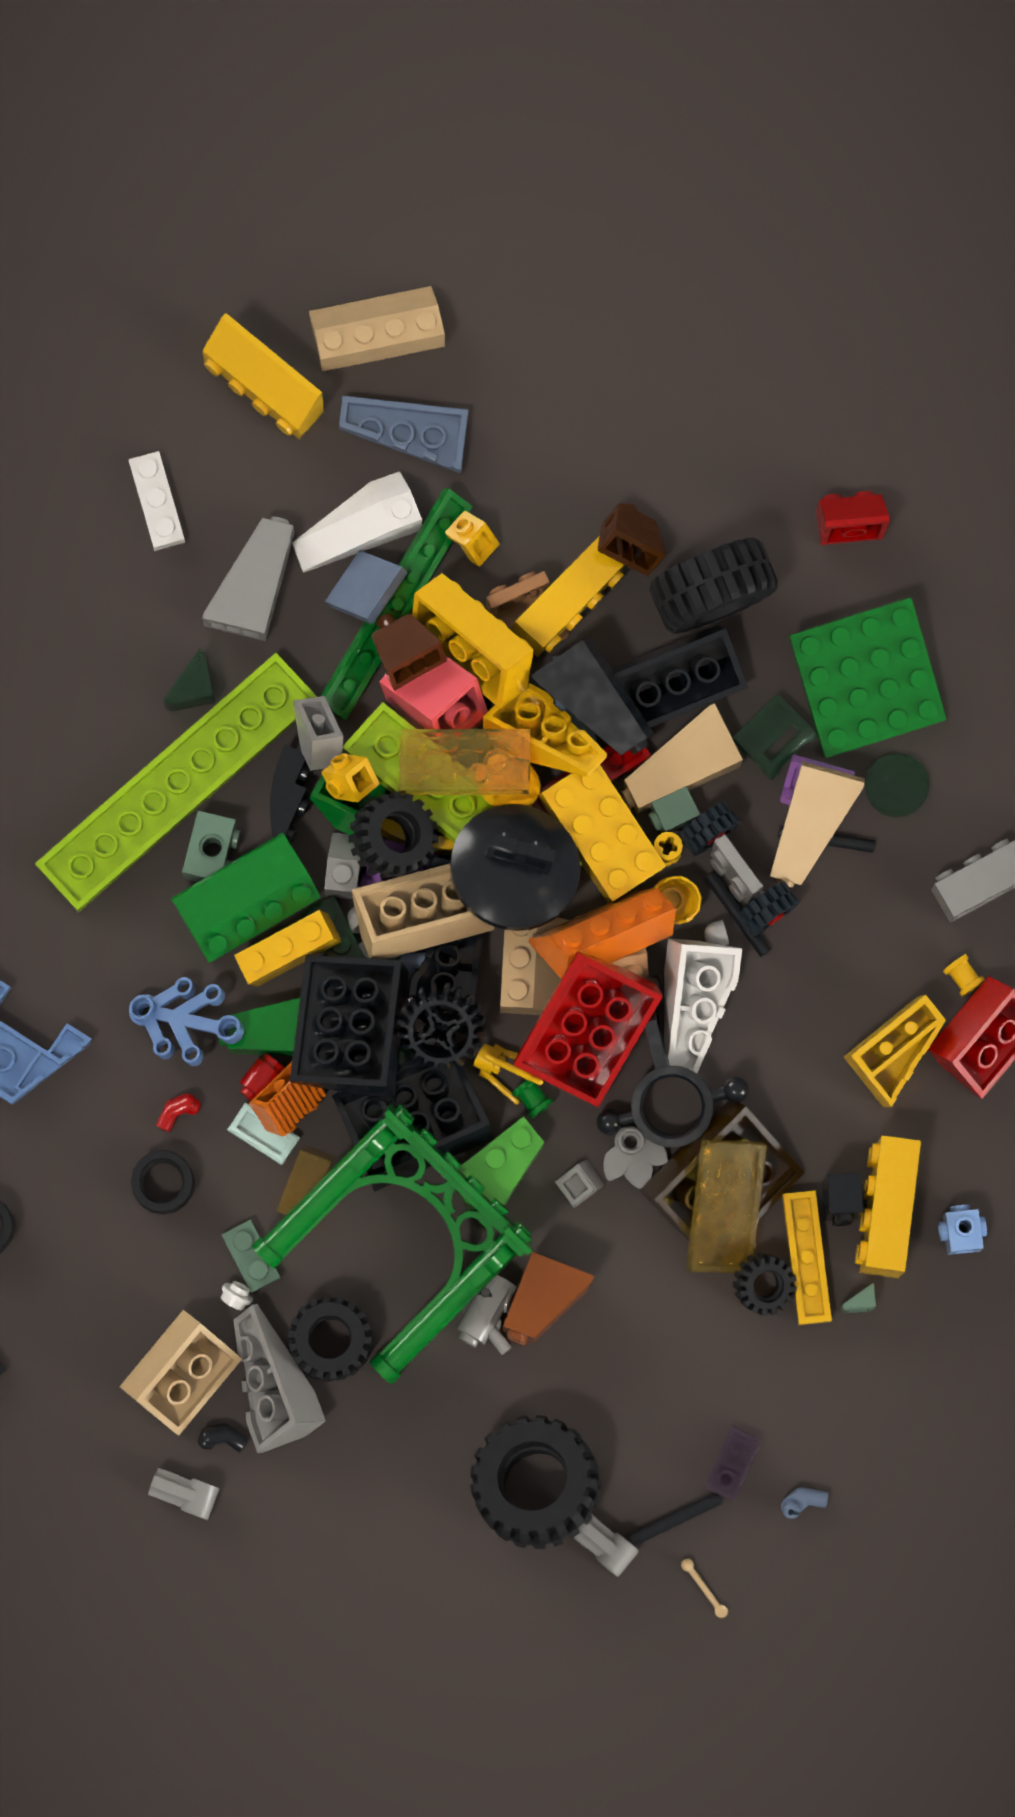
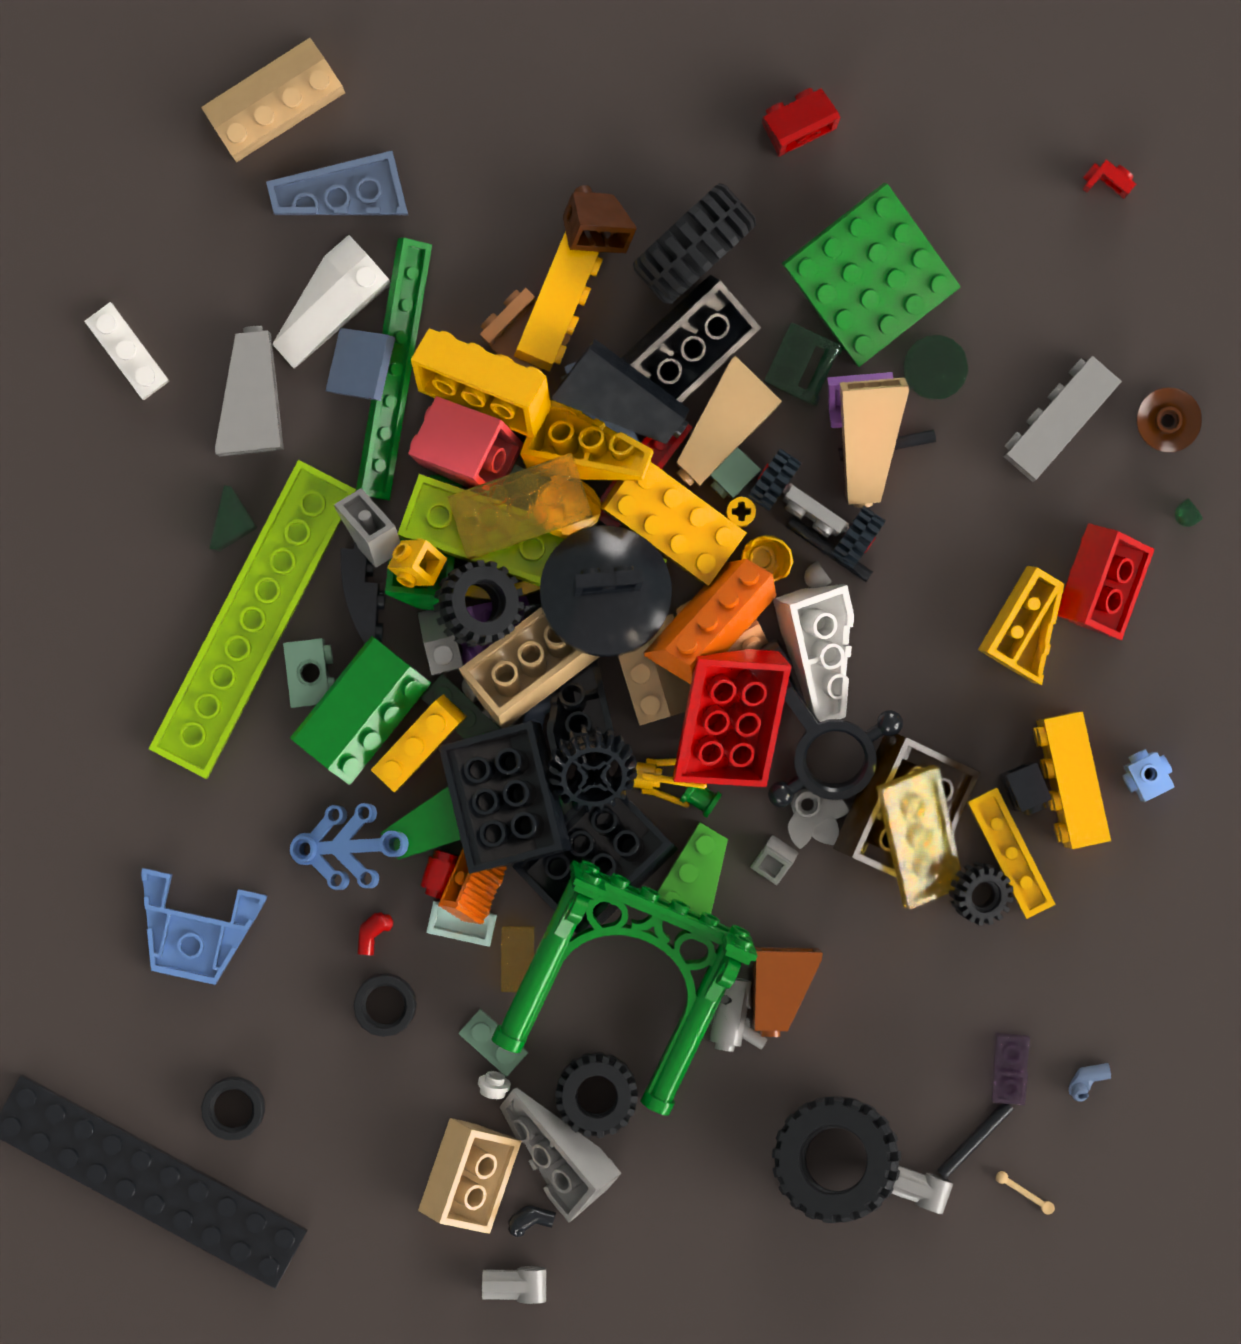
camera: 10 degrees left, 10 degrees up
(262, 377) = (182, 193): yellow slope -> none
(406, 648) = (421, 414): reddish brown torso -> none
(473, 537) = (443, 276): yellow bracket -> none
(862, 1302) = (1076, 876): sand green slope -> none
(964, 975) = (1064, 529): yellow bush -> none

